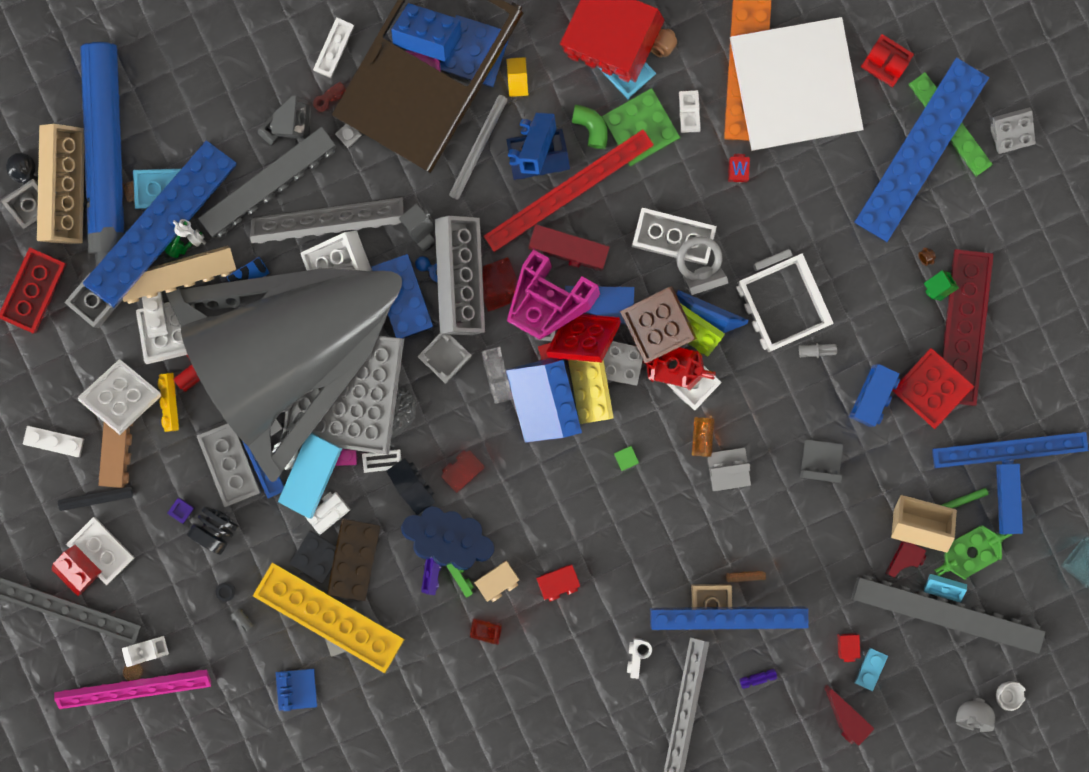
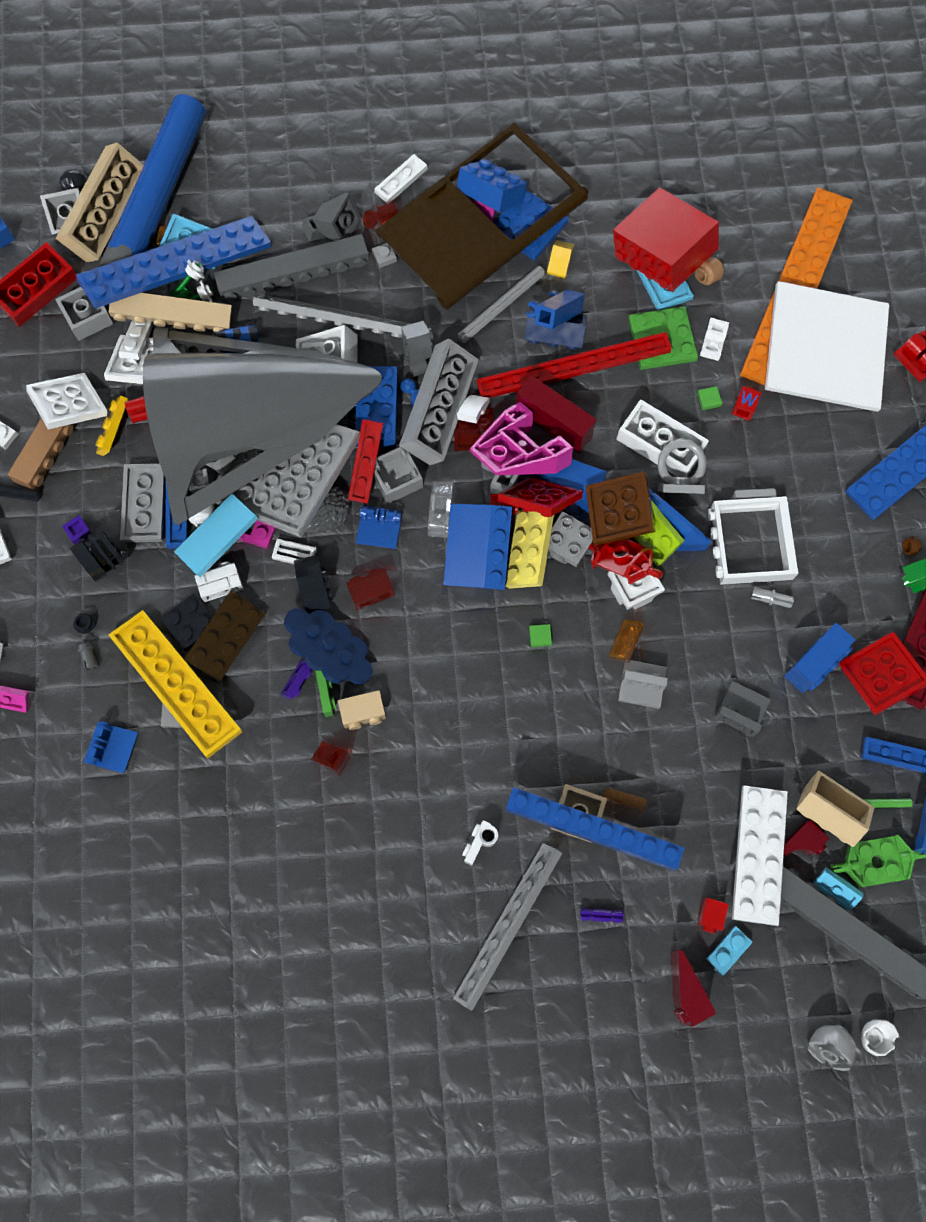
camera: 15 degrees right, 15 degrees down
(415, 360) = (365, 461): none -> red plate
(448, 409) = (379, 527): none -> blue hinge
(492, 269) = (472, 408): none -> white slope
(558, 582) = (424, 734): red brick -> none
(594, 123) = (619, 318): bright green cylinder -> none
(703, 174) = (709, 398): none -> bright green tile
(872, 586) = (759, 855): none -> white plate

